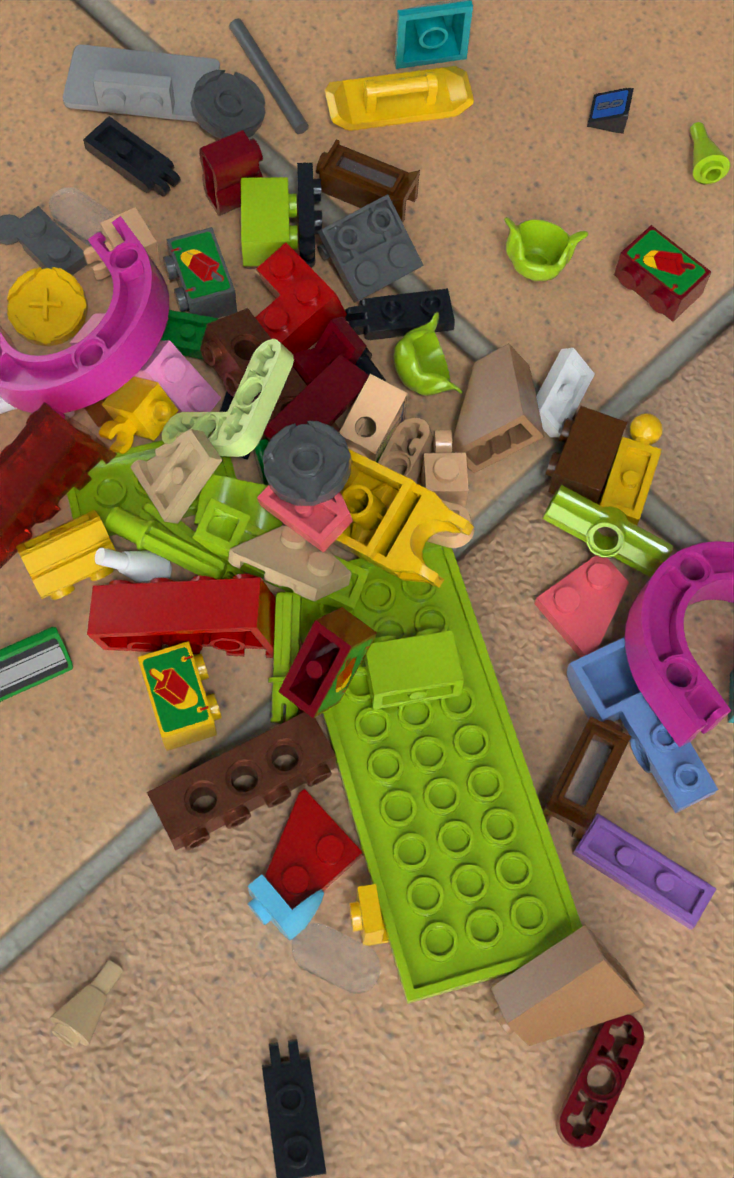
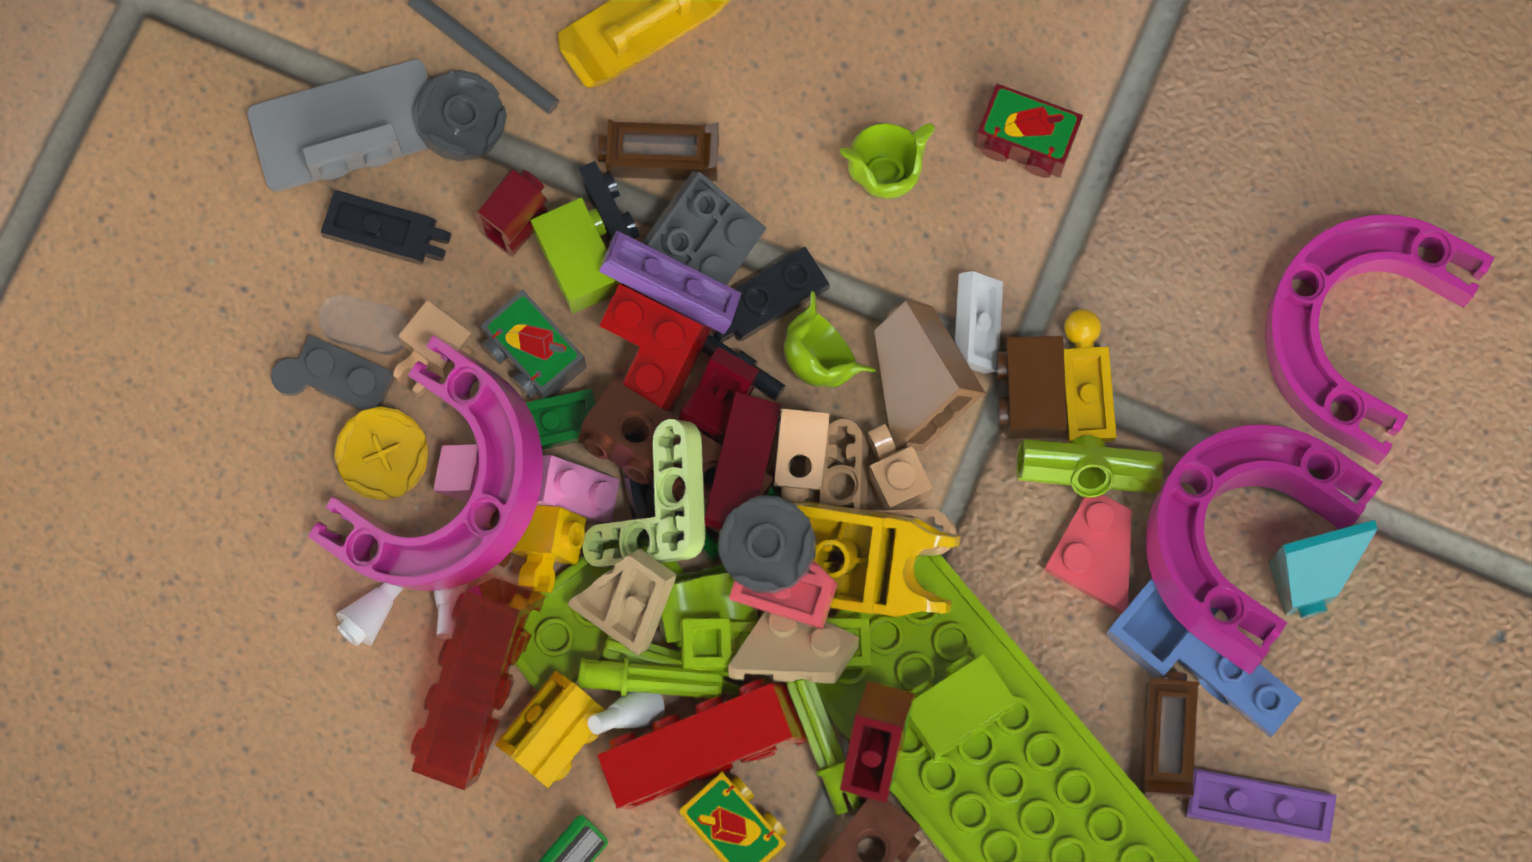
camera: 20 degrees left, 10 degrees up
(327, 260) = (670, 282): none -> medium lavender tile

